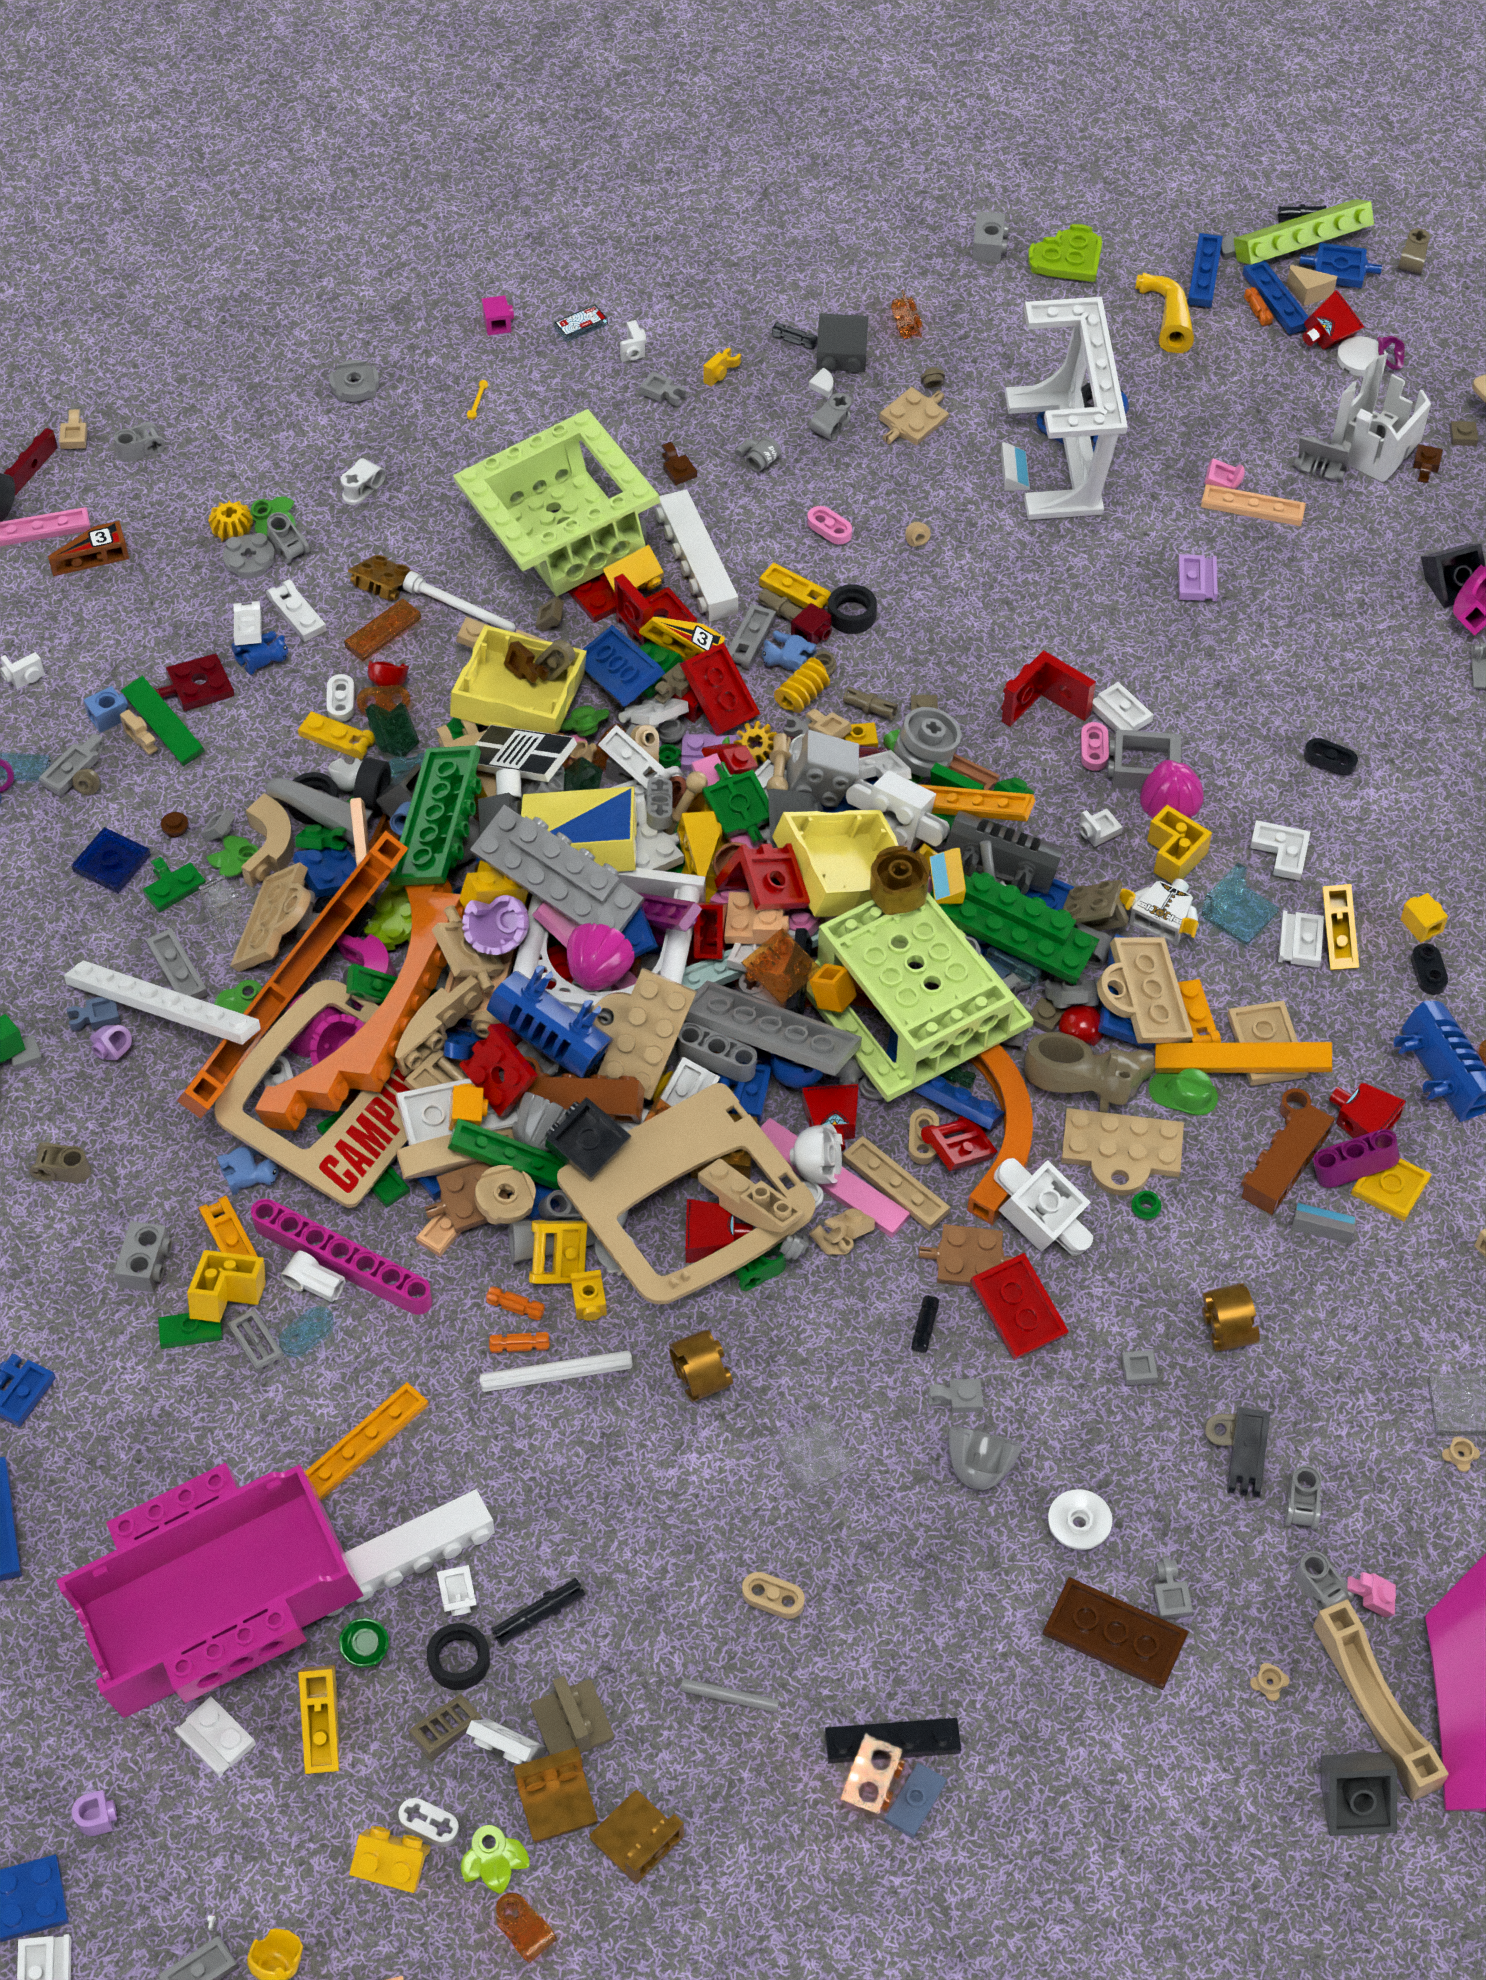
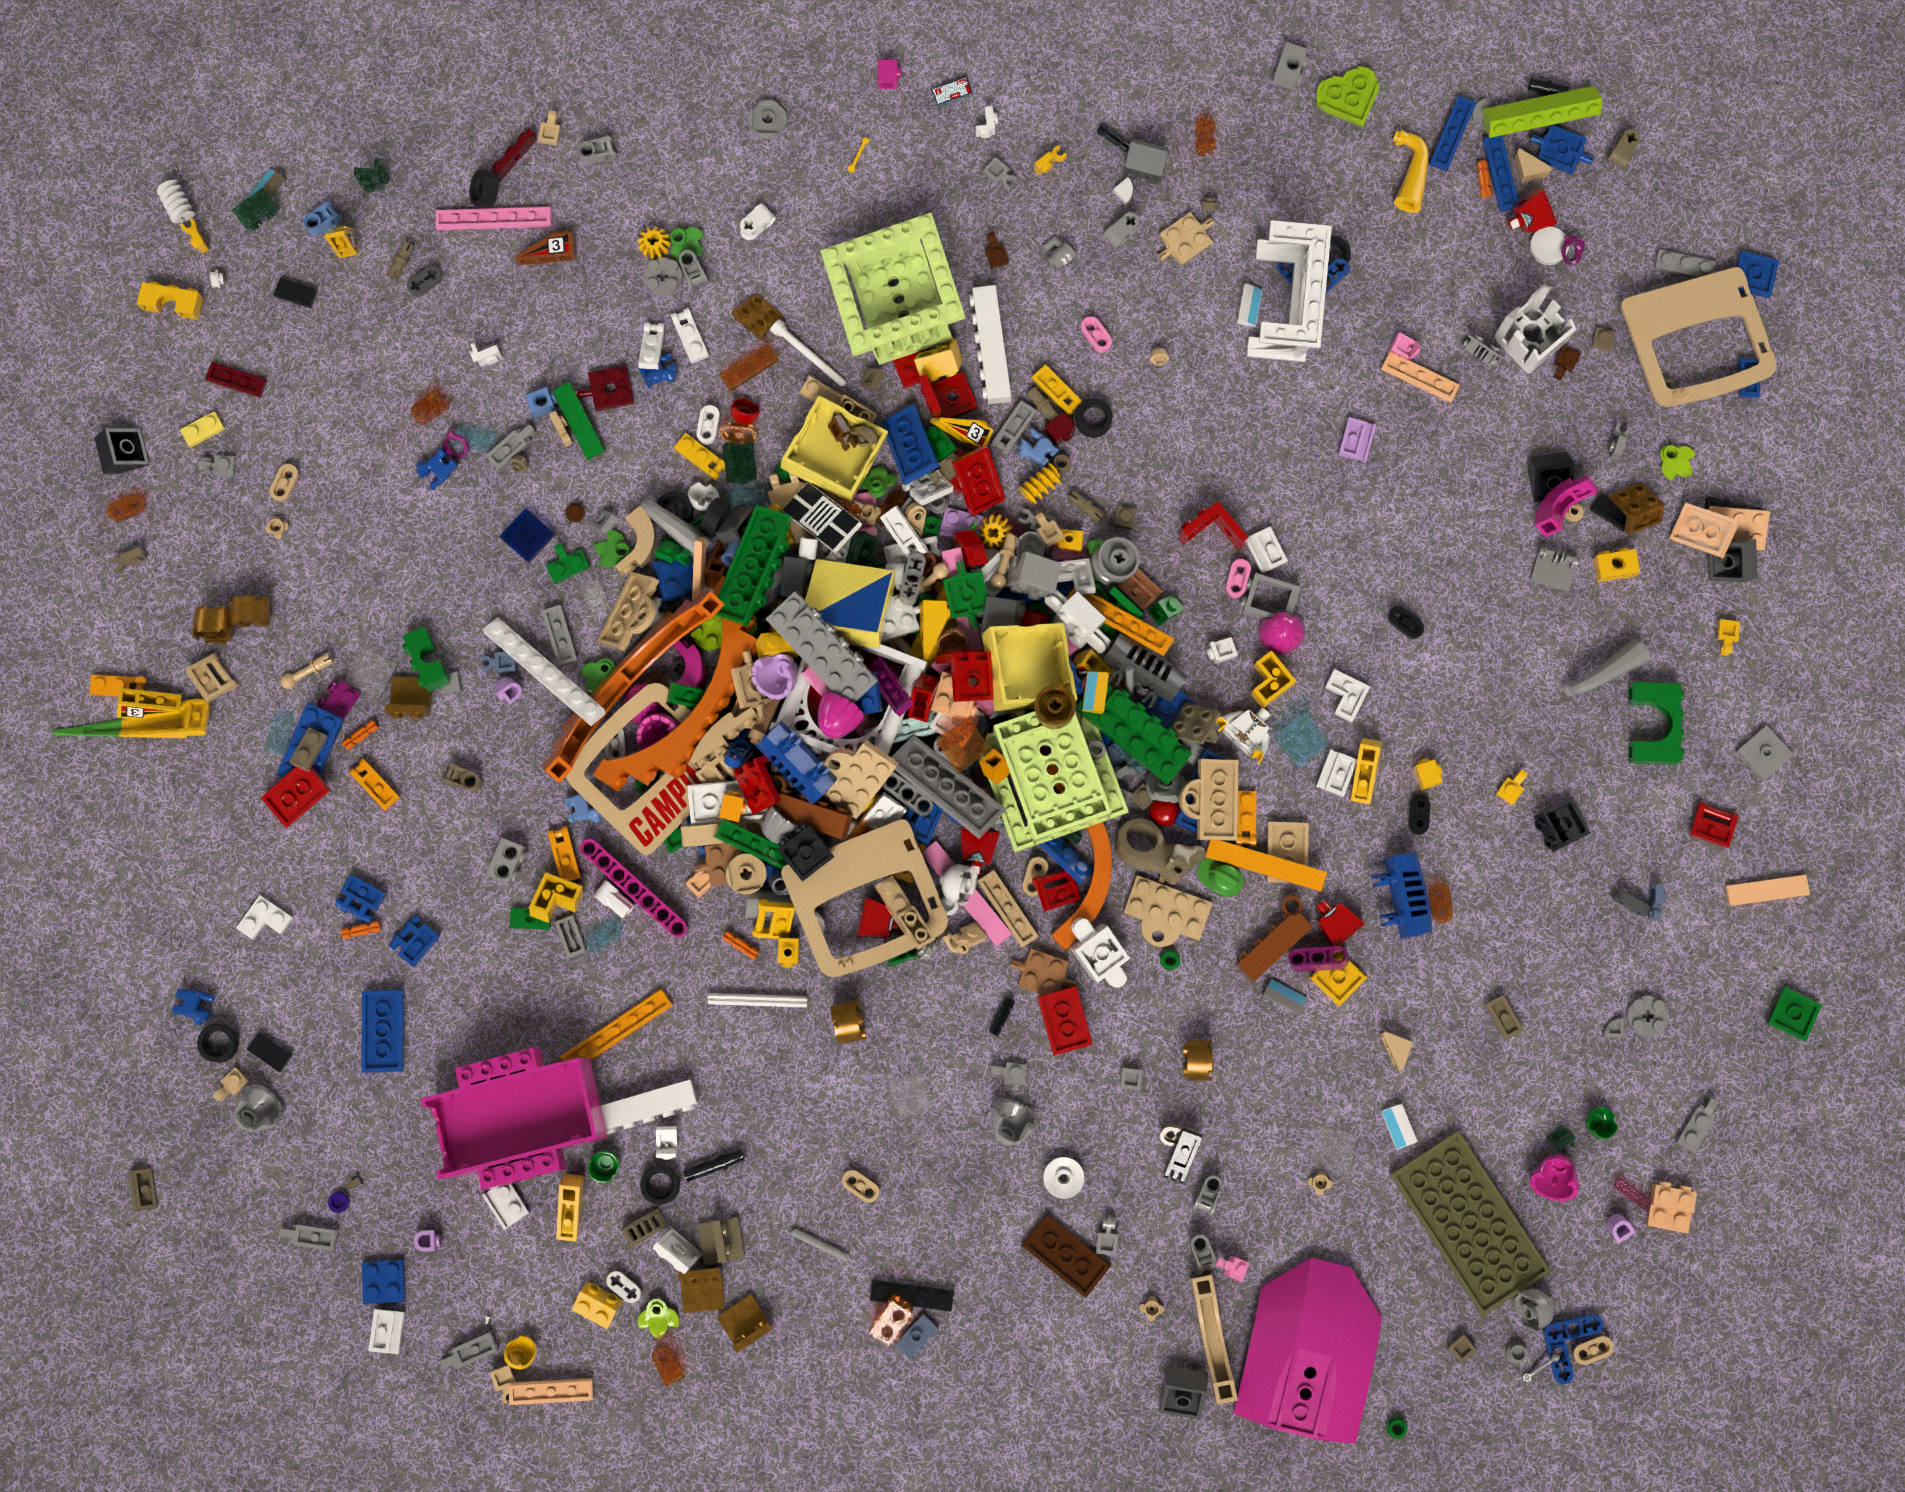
camera: 15 degrees right, 25 degrees up
(519, 1342) = (738, 974): orange axle -> none

